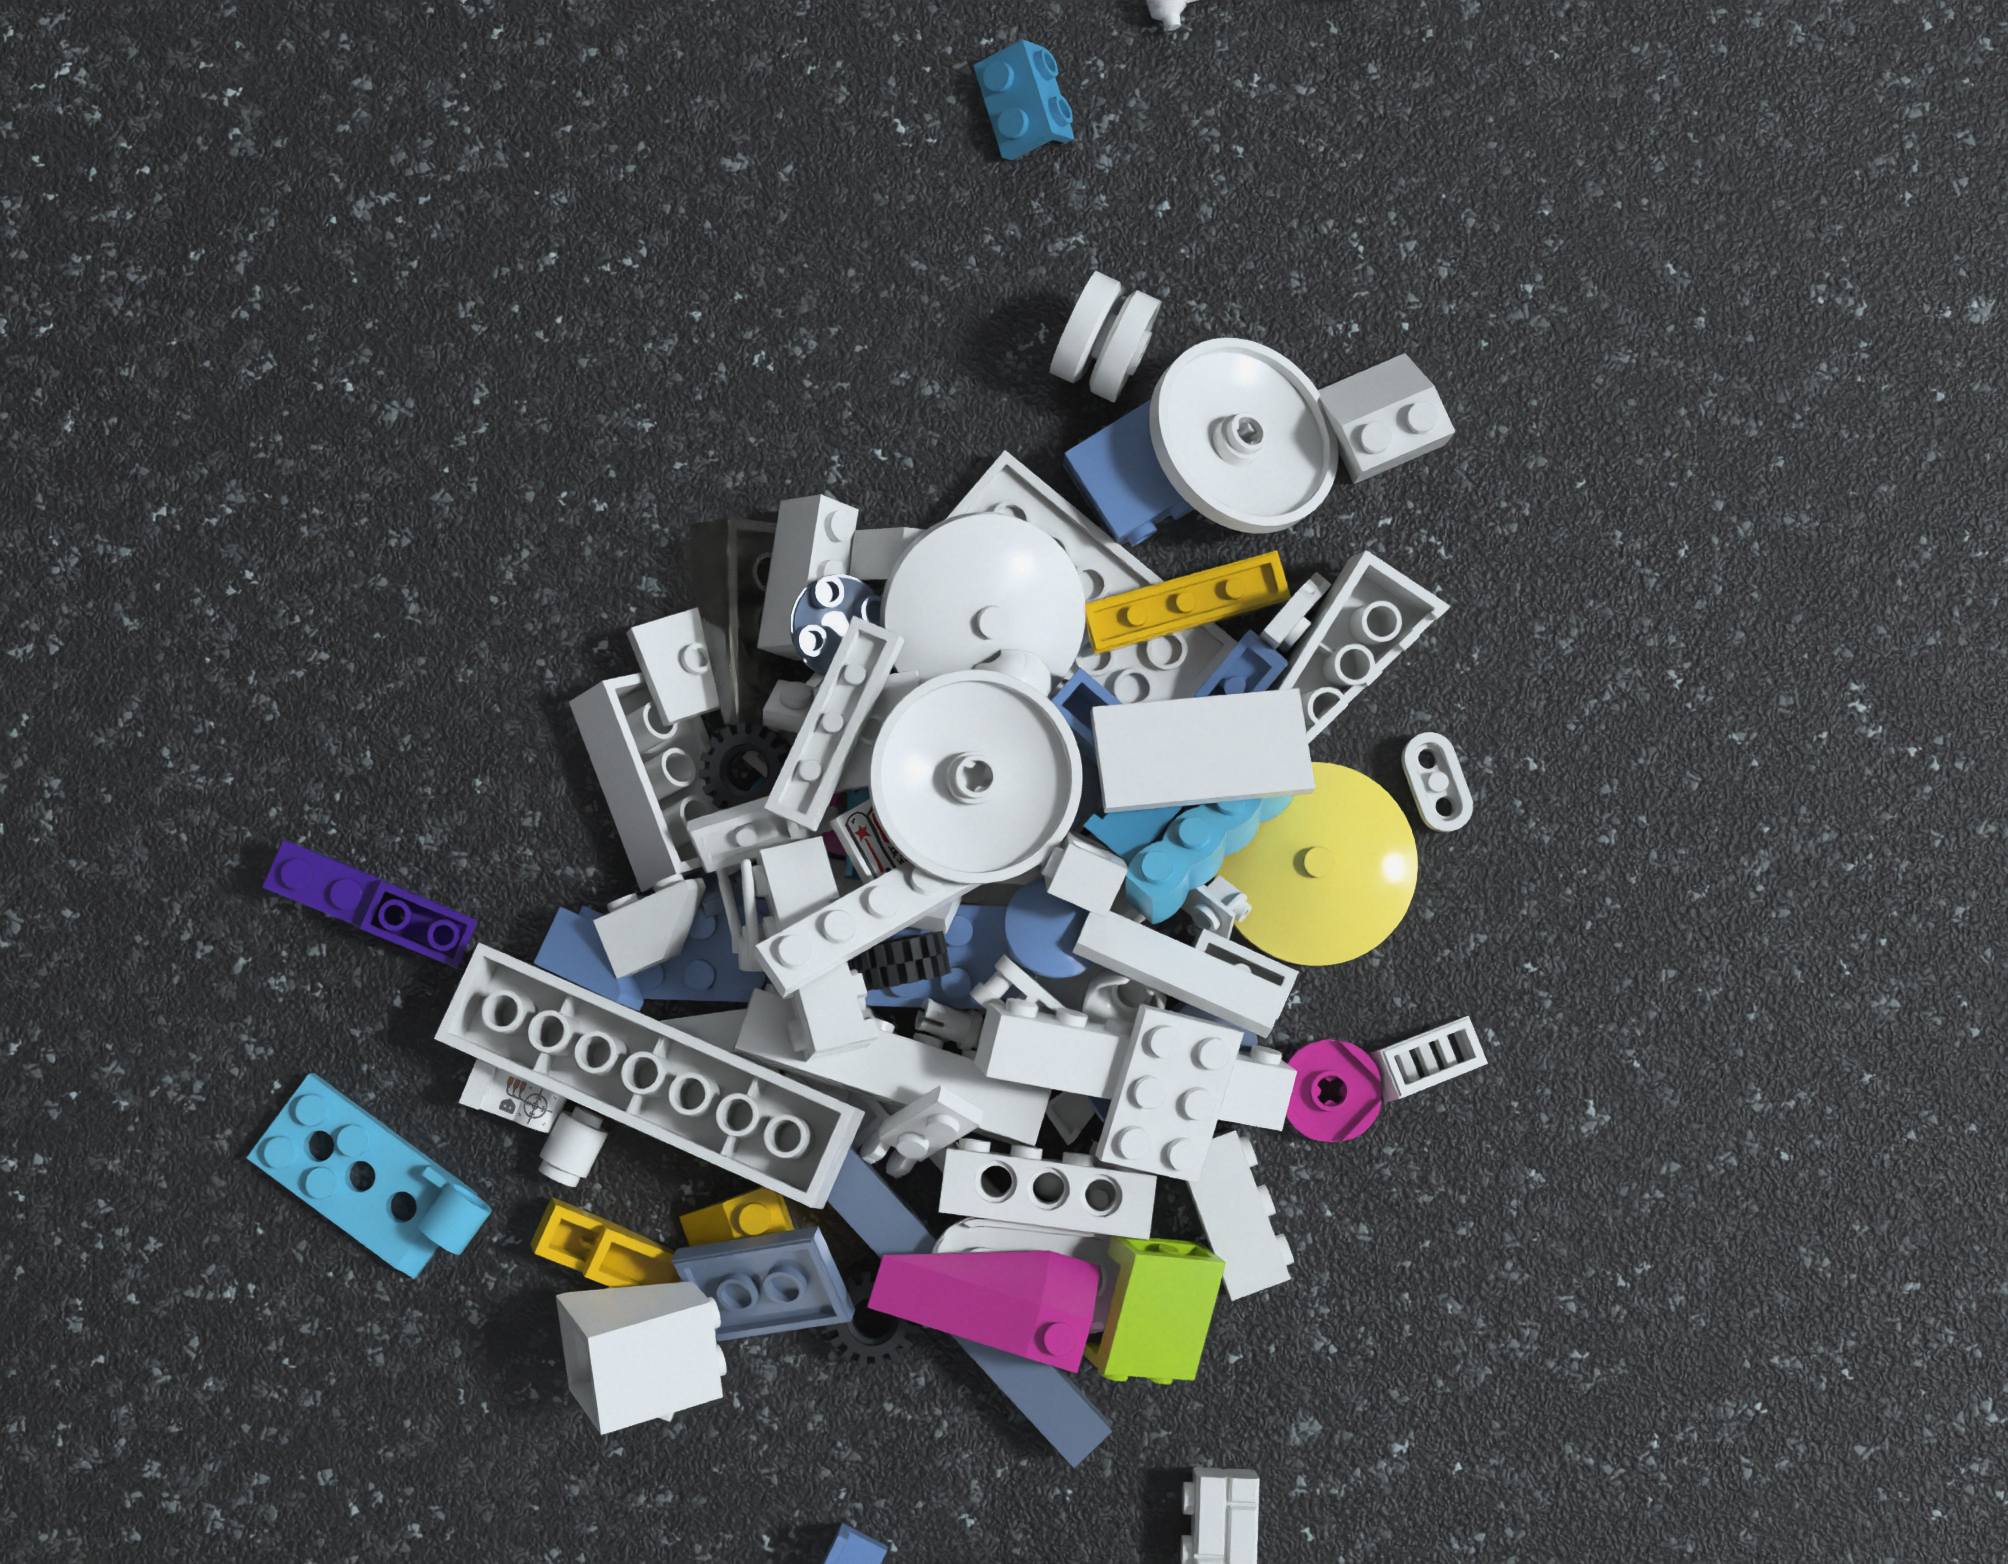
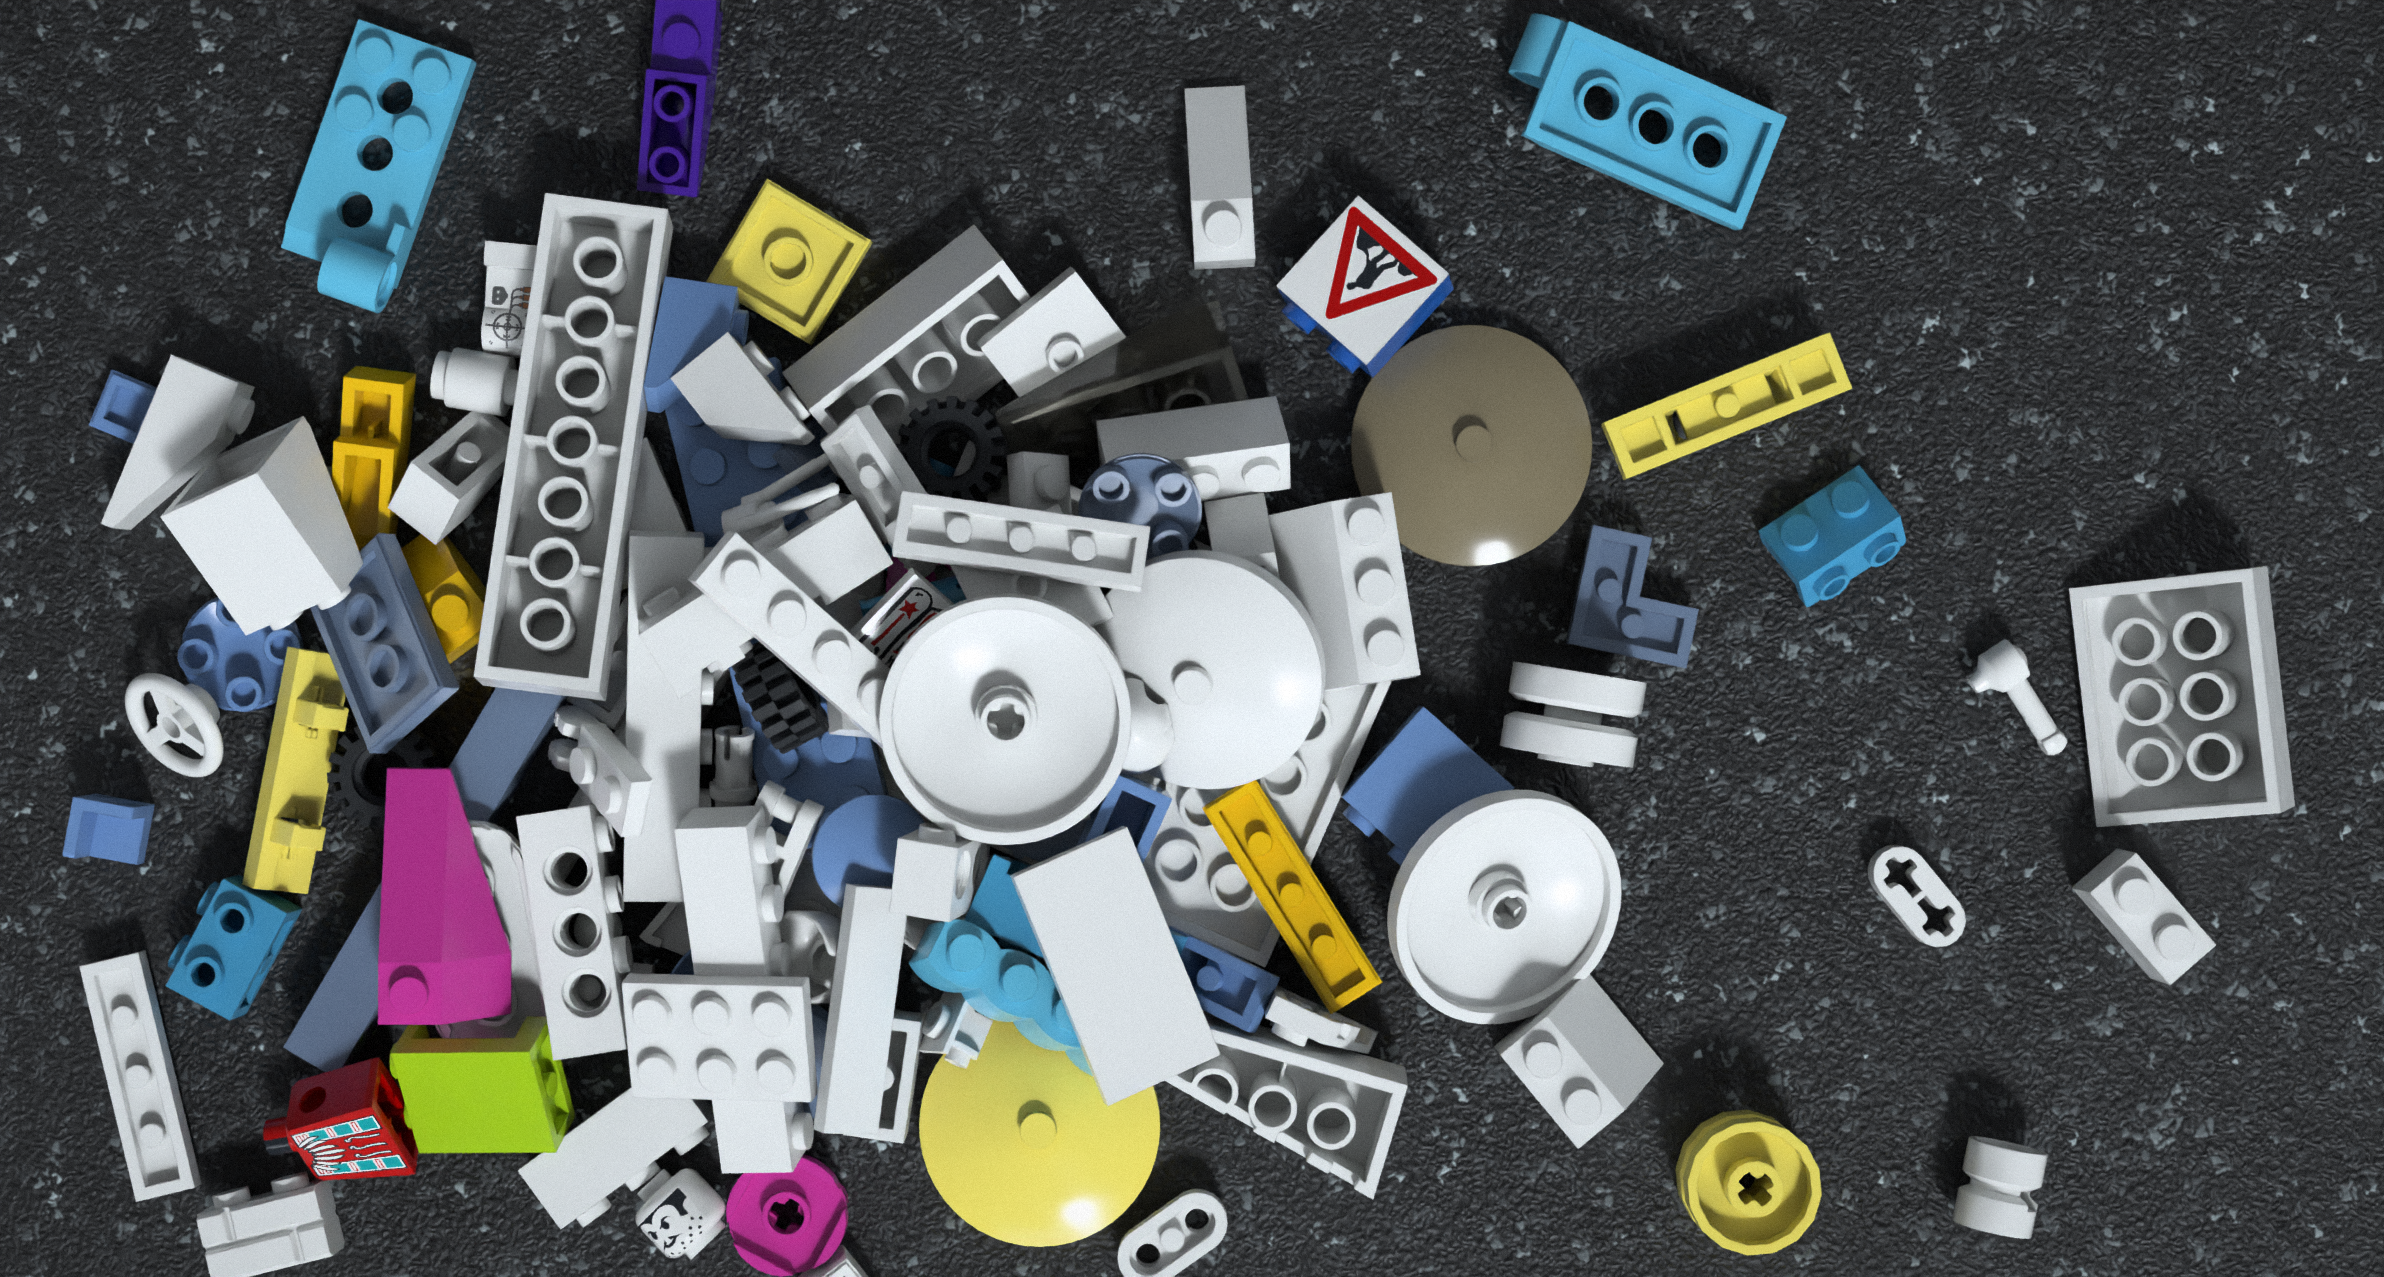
camera: 75 degrees right, 5 degrees up
(508, 1444) = (122, 406): none -> medium blue tile
(537, 1402) = (184, 427): none -> white slope
(554, 861) = (790, 261): none -> light yellow tile
(582, 192) = (1570, 59): none -> medium azure hinge
(595, 497) = (1219, 177): none -> white slope
(643, 1187) = (452, 476): none -> white slope
(715, 406) = (1363, 288): none -> piece
(746, 1418) = (234, 667): none -> medium blue dish
(775, 1471) = (184, 716): none -> white piece
(850, 1391) = (295, 774): none -> light yellow hinge
(867, 363) = (1474, 444): none -> dark tan dish
(895, 149) = (1727, 406): none -> light yellow hinge
(945, 474) = (1352, 582): none -> white slope
(977, 1489) = (231, 946): none -> dark azure brick
(1033, 288) = (1609, 607): none -> sand blue plate
(1153, 1433) = (346, 1124): none -> red torso
(1305, 1177) = (680, 1213): none -> white head
(1322, 108) = (1927, 886): none -> white beam
(1546, 302) = (1768, 1212): none -> light yellow wheel
(1577, 116) = (2000, 1187): none -> white wheel

